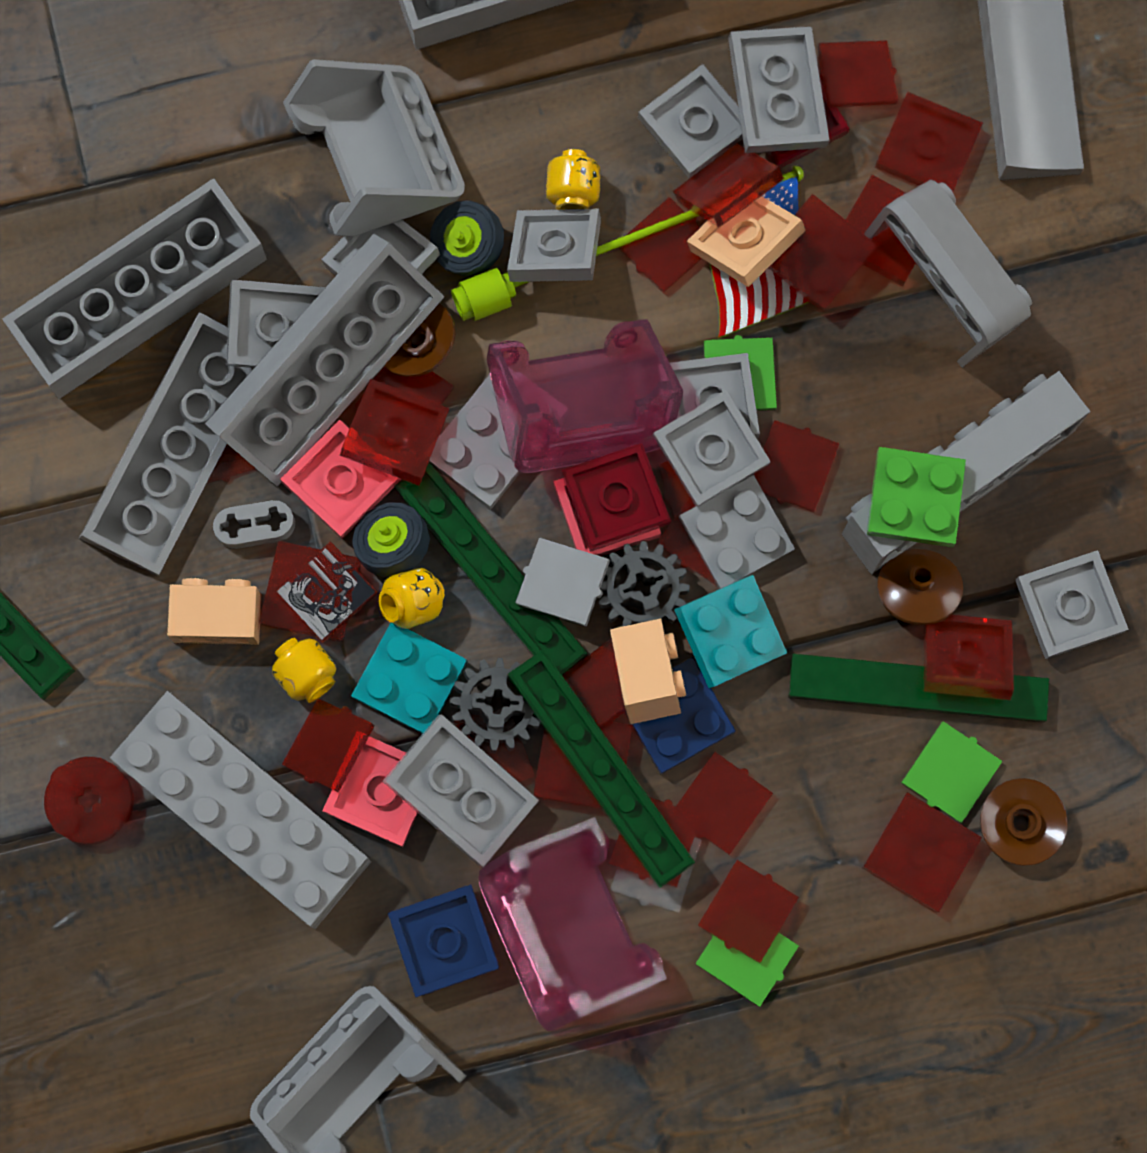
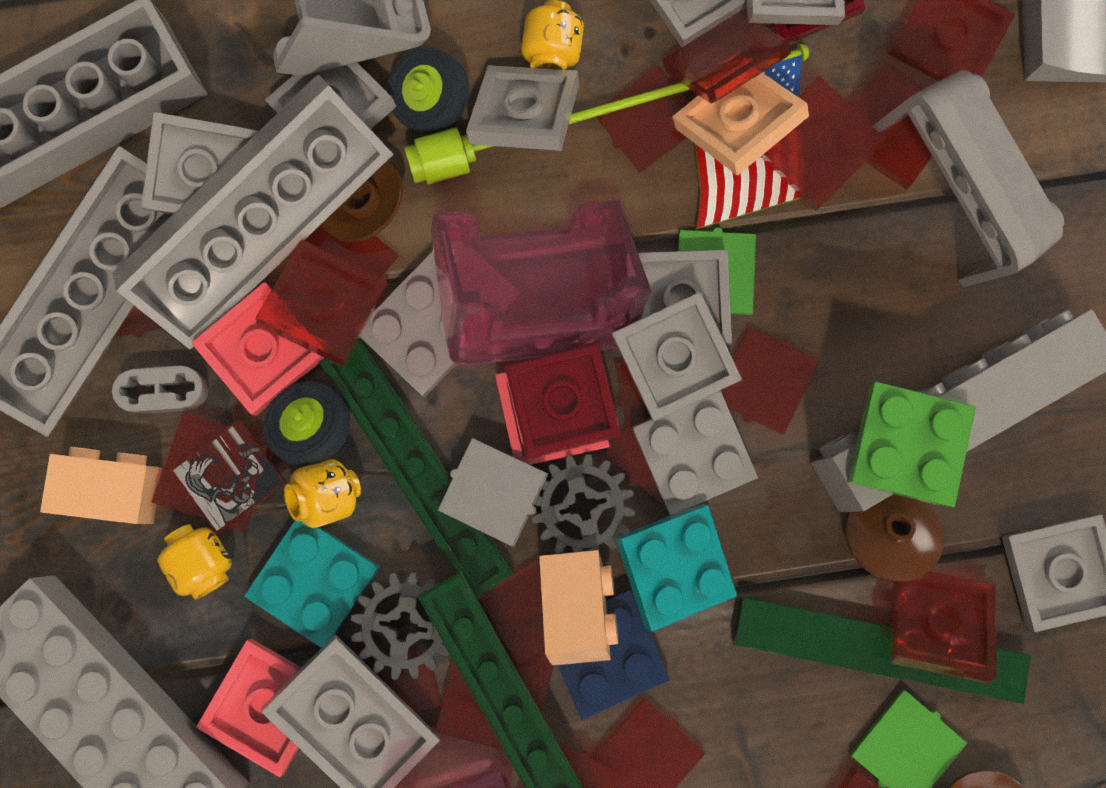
camera: 10 degrees right, 5 degrees up
(328, 745) = (212, 651): clear red piece -> none

